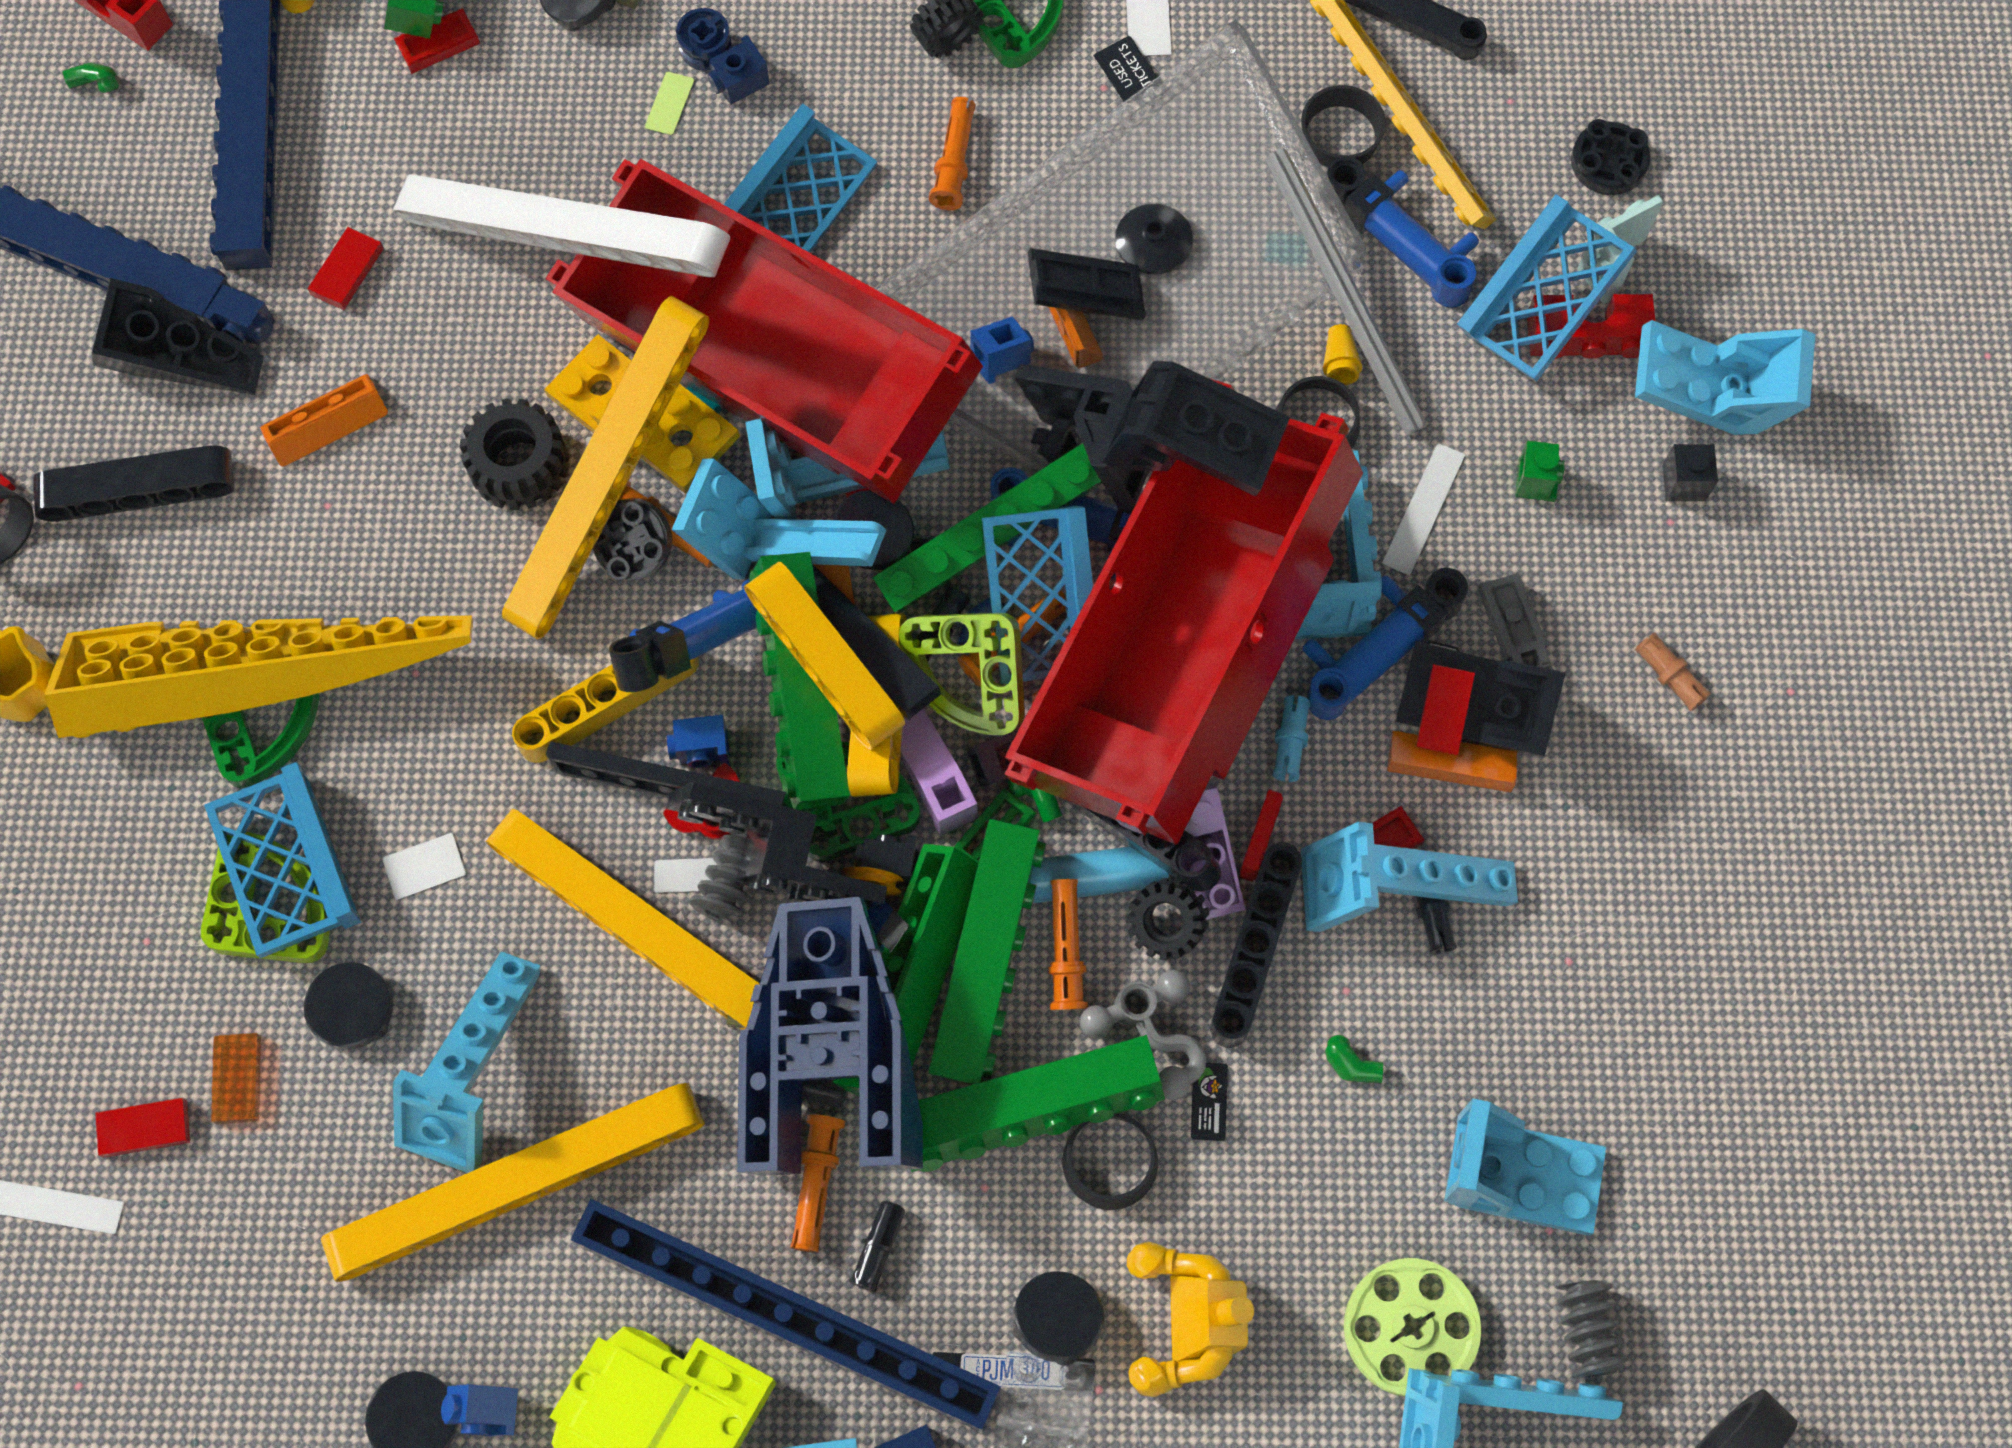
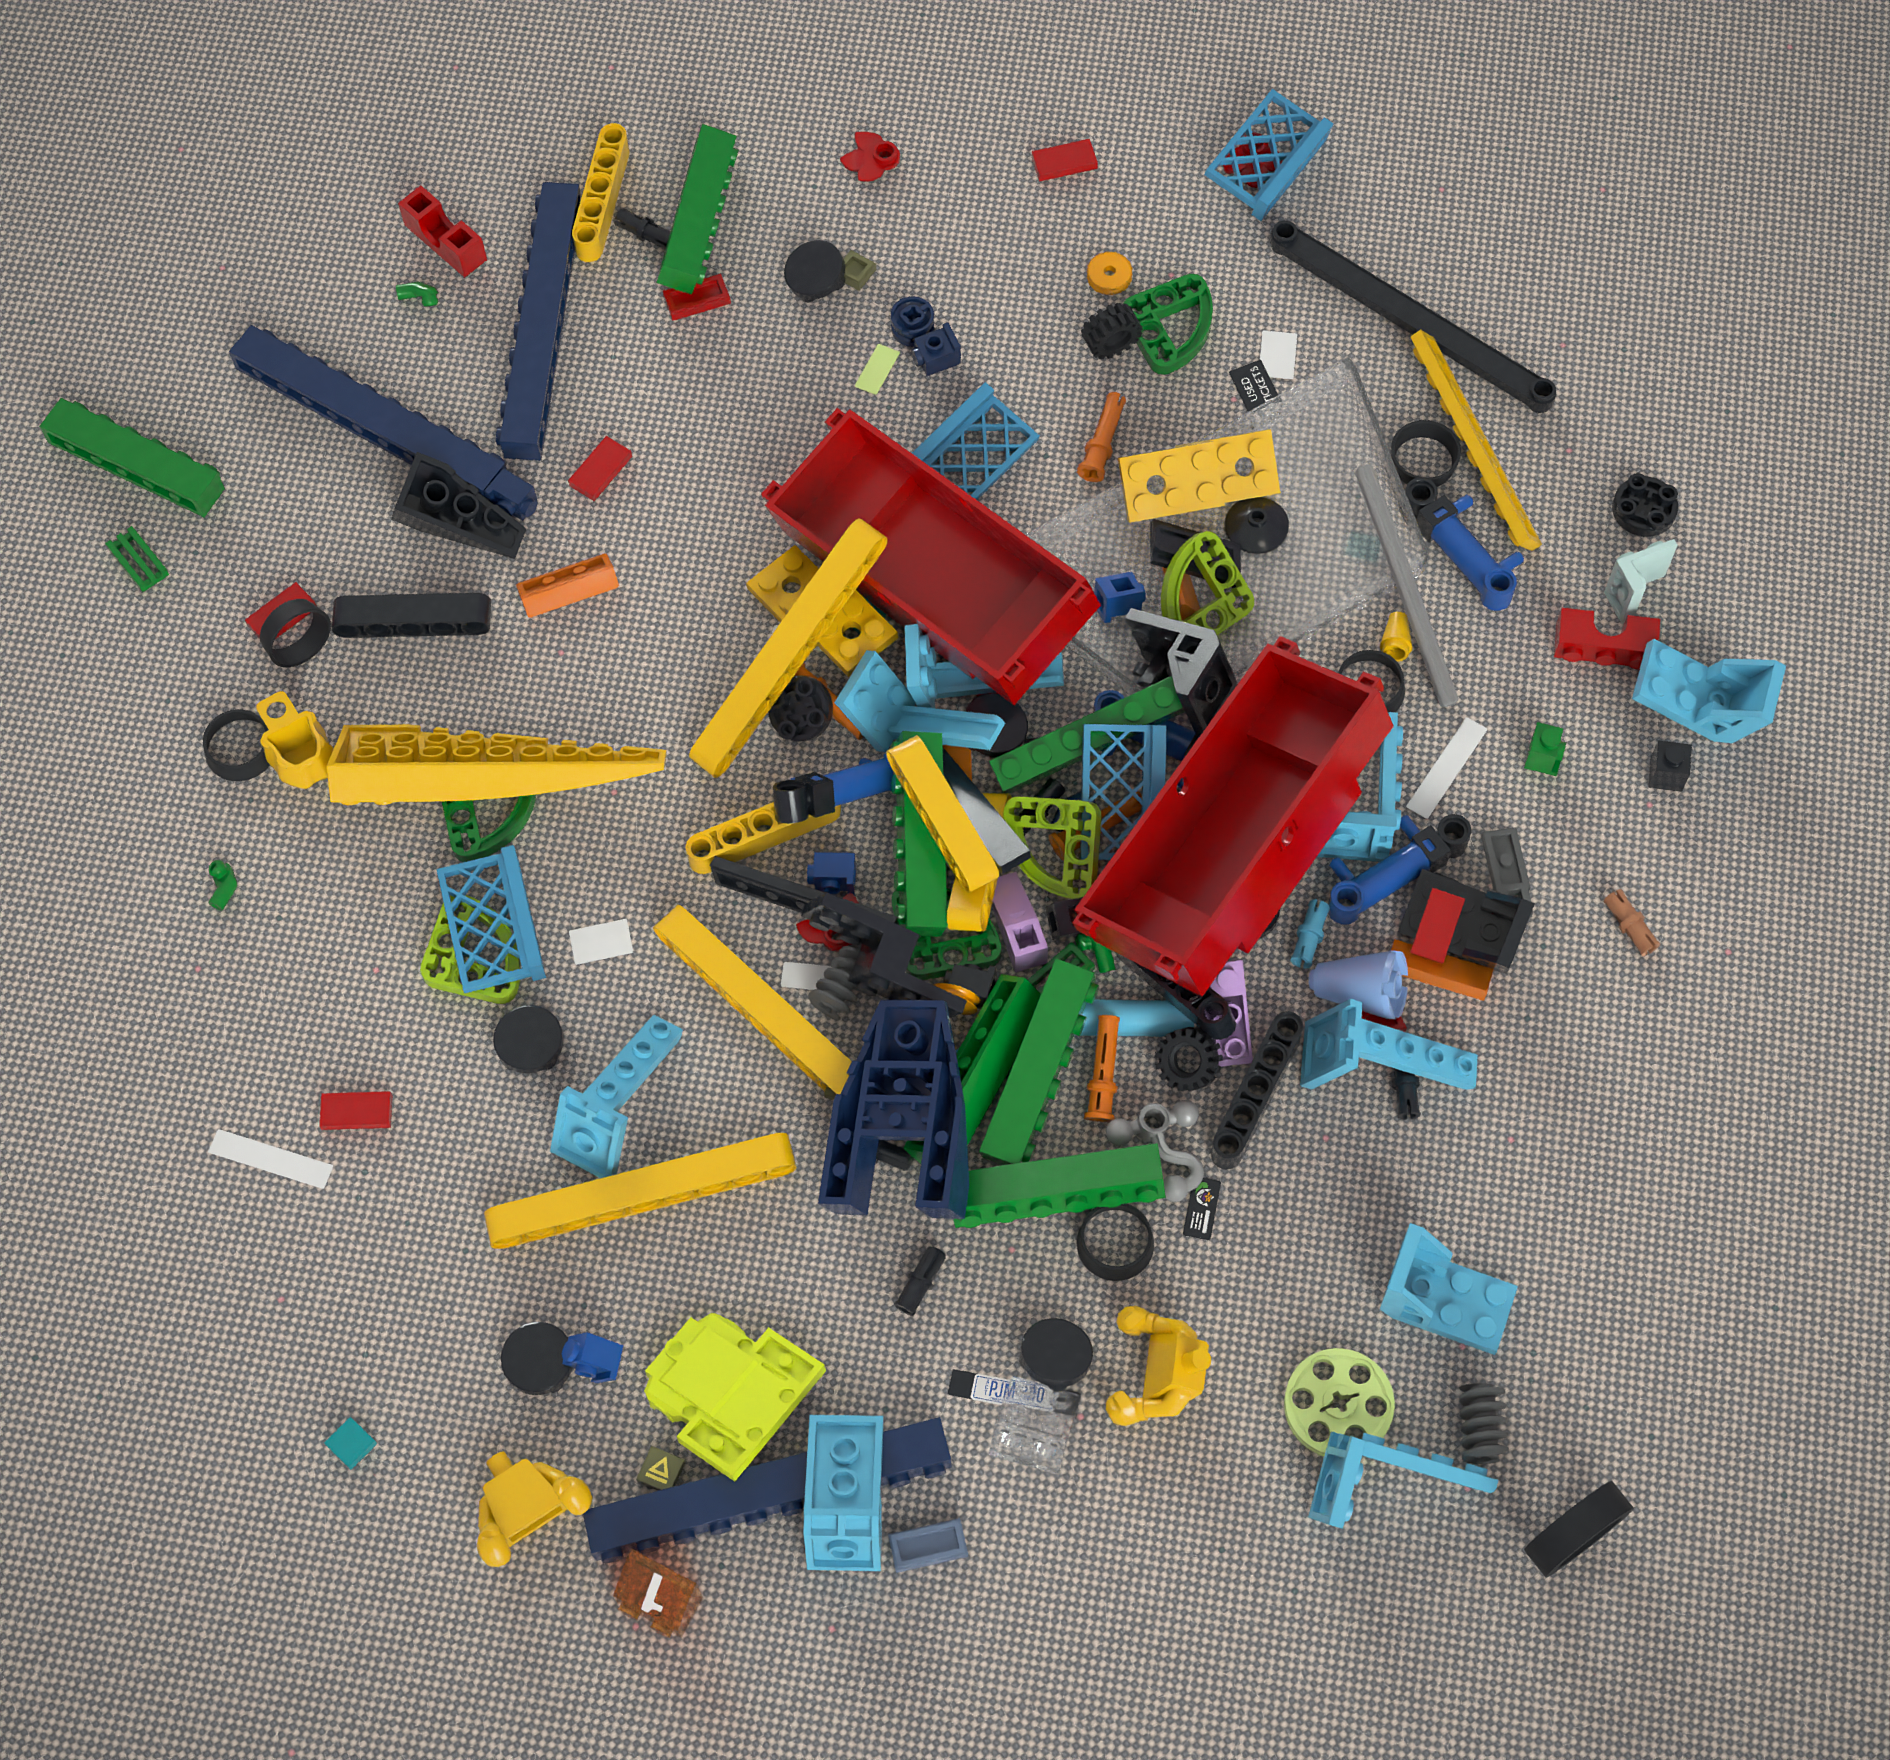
camera: 10 degrees right, 5 degrees down
(236, 1078) = (433, 1083): clear orange tile -> none
(511, 425) = (710, 608): black tyre -> none
(564, 225) = (780, 453): white beam -> none
(787, 1315) = (842, 1321): dark blue brick -> none
(819, 1162) = (883, 1209): orange pin -> none
(887, 924) = (963, 1032): sticker -> none
(1077, 187) = (1199, 475): none -> yellow bracket
(1129, 338) = (1224, 600): none -> lime beam
(1198, 422) = (1265, 668): black bracket -> none
(1261, 836) = (1274, 1004): red tile -> none
(1347, 1063) = (1318, 1194): green arm -> none
(1366, 791) = (1365, 978): none -> light blue cone
(1525, 263) = (1552, 583): dark azure fence -> none

